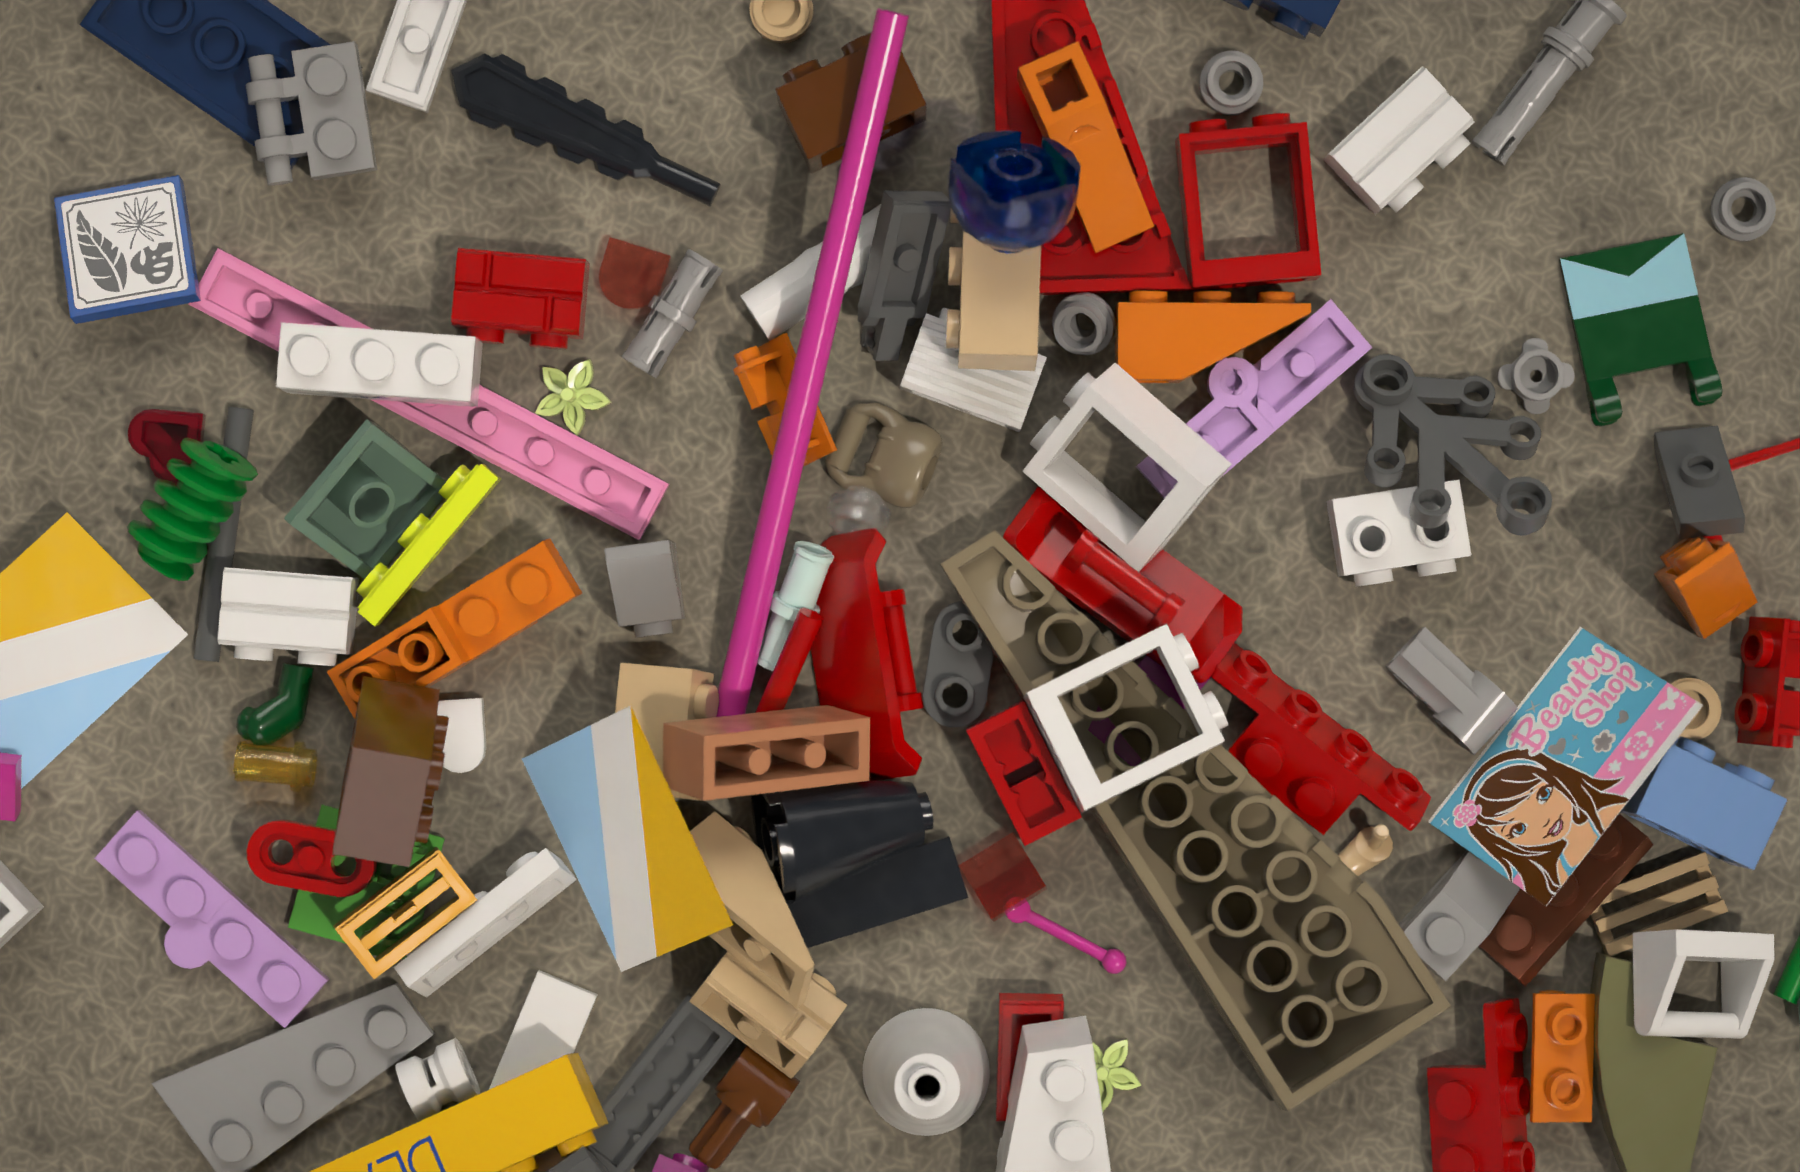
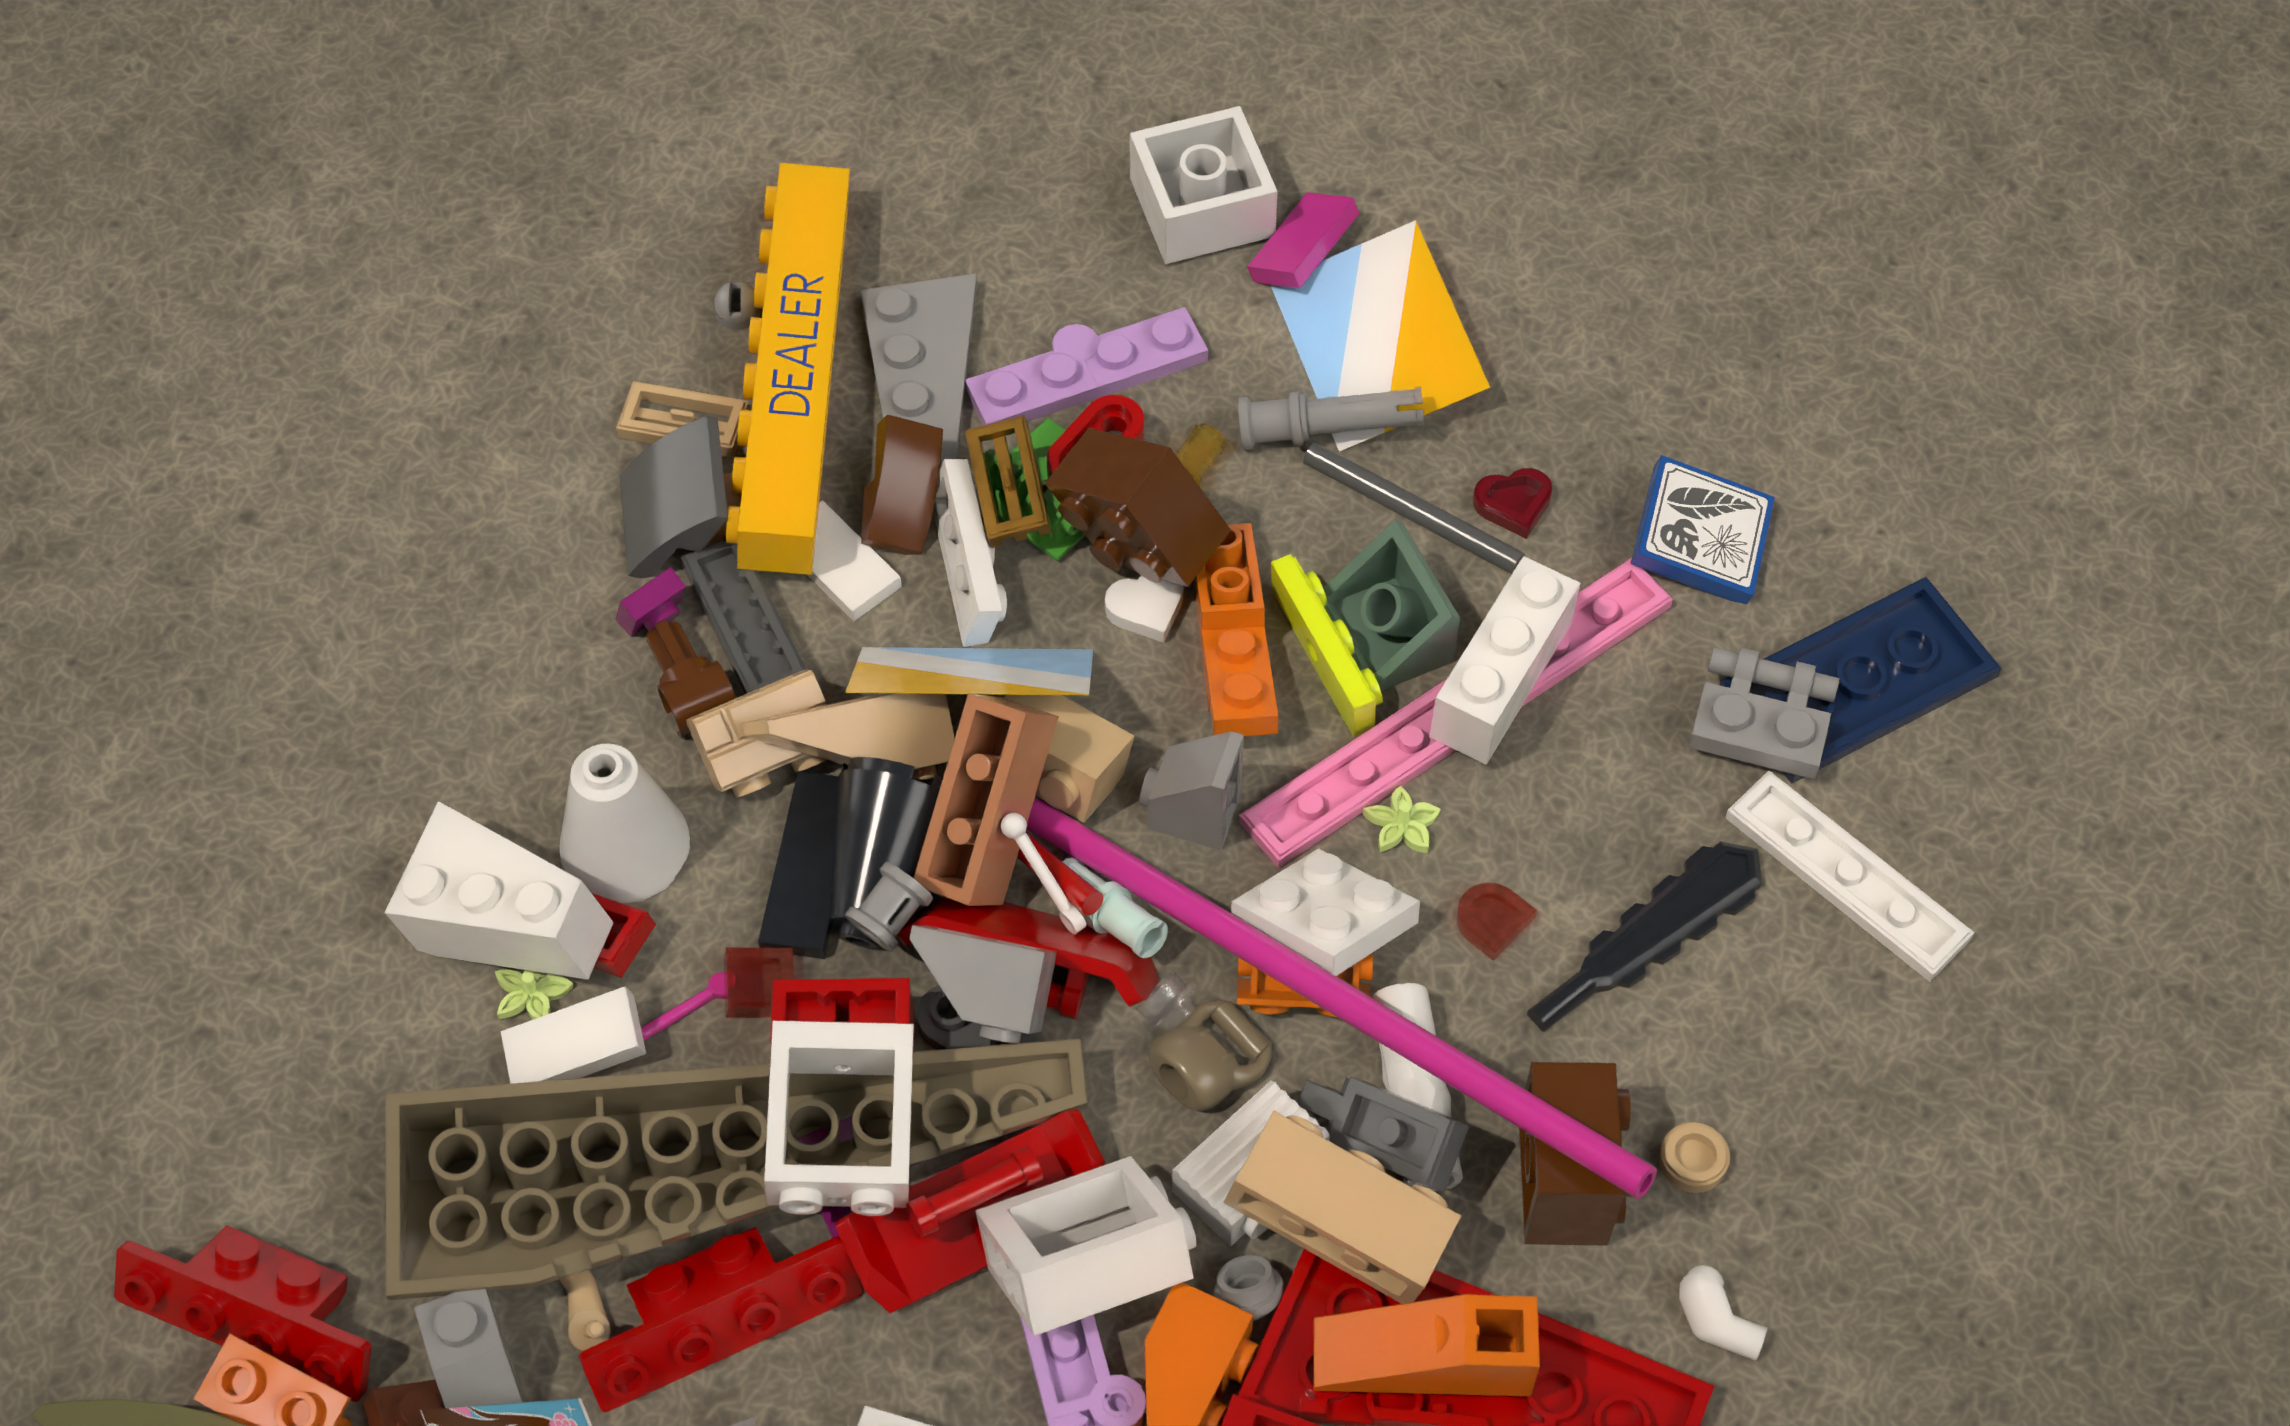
camera: 115 degrees right, 30 degrees down
(181, 680) = (1299, 418): none -> light grey pin
(191, 507) = (1449, 474): green piece -> none
(280, 714) = (1233, 485): dark green arm -> none
(288, 613) = (1320, 514): white brick -> none
(437, 1079) = (851, 461): white wheel -> none
(443, 1014) = (904, 486): none -> reddish brown slope
(520, 296) = (1516, 808): red brick -> none
(672, 313) = (1442, 936): light grey pin -> none
(714, 413) = (1328, 911): none -> white plate
(789, 708) = (1014, 827): none -> white hinge
(908, 784) = (889, 906): none -> light grey bush
(931, 667) = (989, 979): none -> light grey slope
(1013, 190) = (1414, 1215): clear blue cylinder -> none
(1139, 1001) = (575, 1040): none -> white tile

